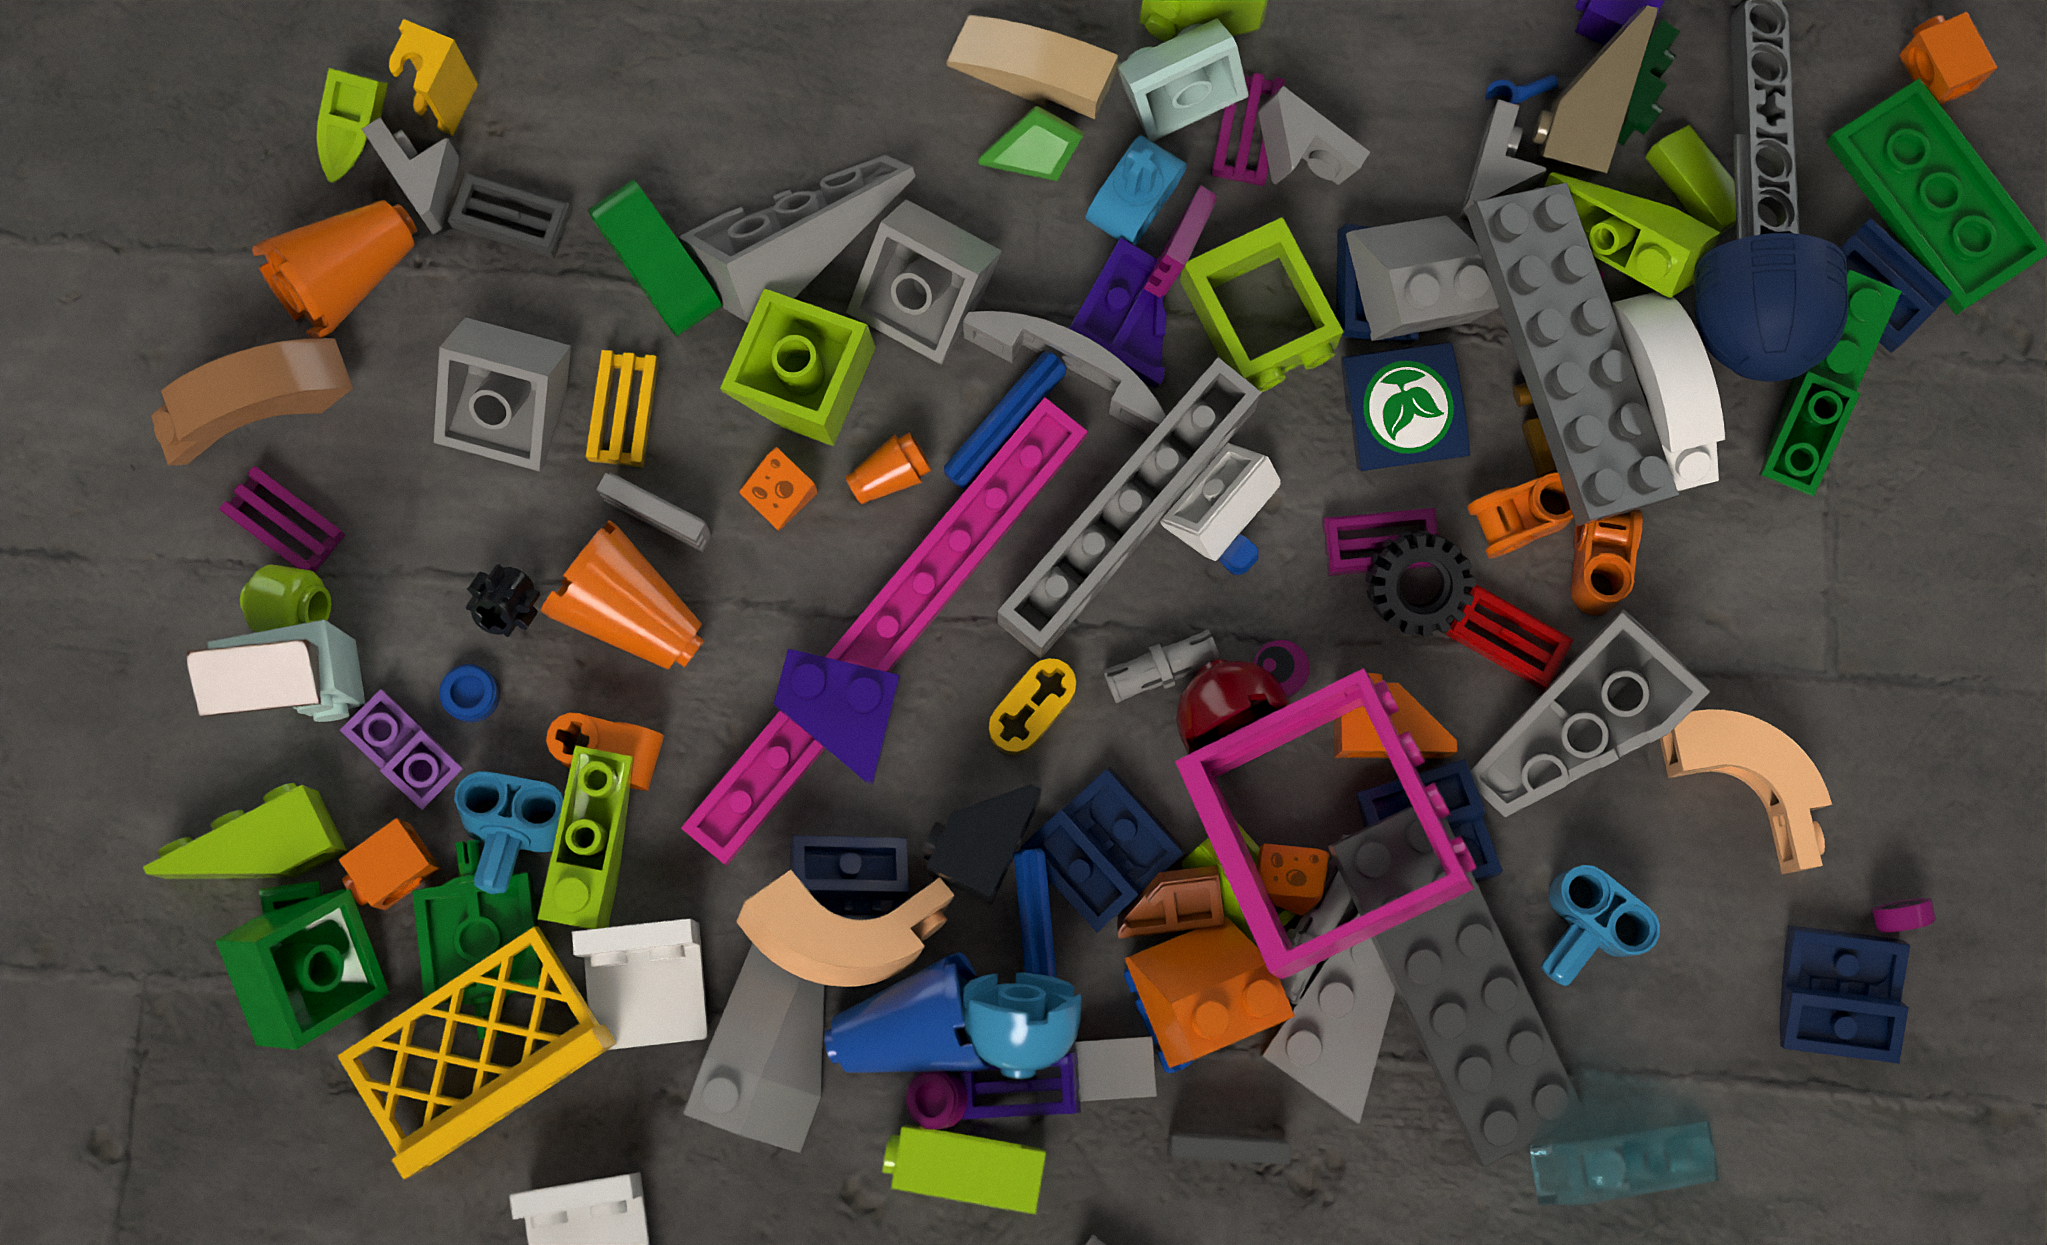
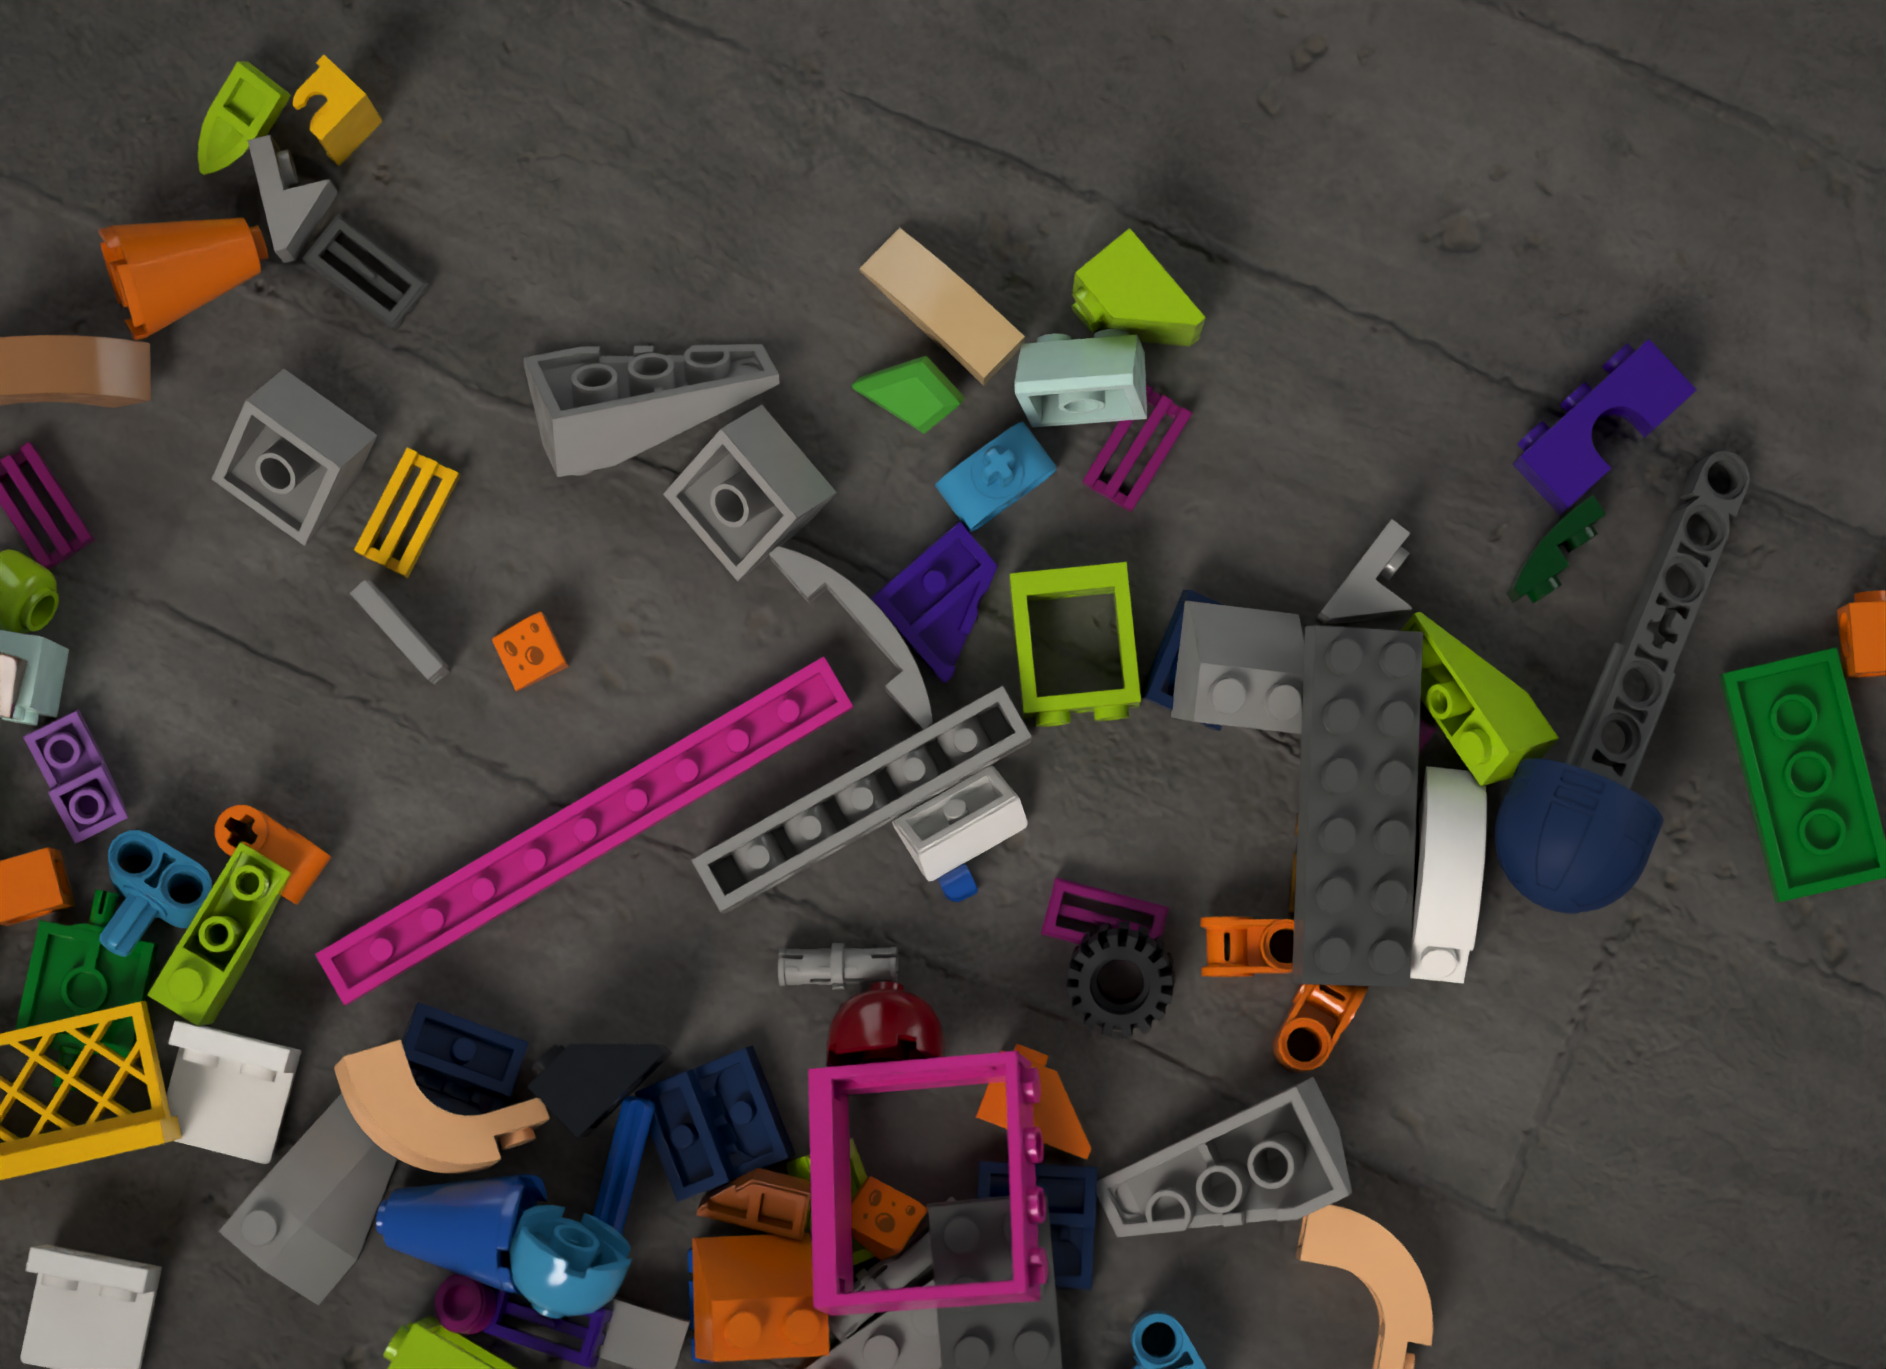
camera: 25 degrees right, 5 degrees up
(469, 693) = (160, 744): blue tile -> none
(502, 600) = (222, 667): black gear -> none
(624, 602) = (339, 714): orange cone -> none
(655, 258) = (492, 372): green beam -> none
(799, 365) = (592, 539): lime slope -> none
(839, 706) = (507, 894): dark purple wing -> none
(889, 469) = (648, 671): orange cone -> none
(1004, 419) = (779, 662): blue axle -> none
(1021, 698) = (691, 946): yellow beam -> none
(1181, 242) = (1016, 550): magenta tile -> none
(1286, 663) = (957, 1009): magenta tile -> none
(1298, 131) = (1175, 476): light grey slope -> none
(1405, 406) = (1180, 794): slope -> none
(1498, 655) = (1224, 1101): red tile -> none
(1522, 92) = (1429, 512): blue hand -> none
(1592, 108) = (1485, 558): dark tan slope -> none
(1695, 178) = (1569, 663): lime slope -> none
(1826, 394) = (1604, 937): green slope -> none
(1884, 260) = (1710, 847): dark blue plate -> none

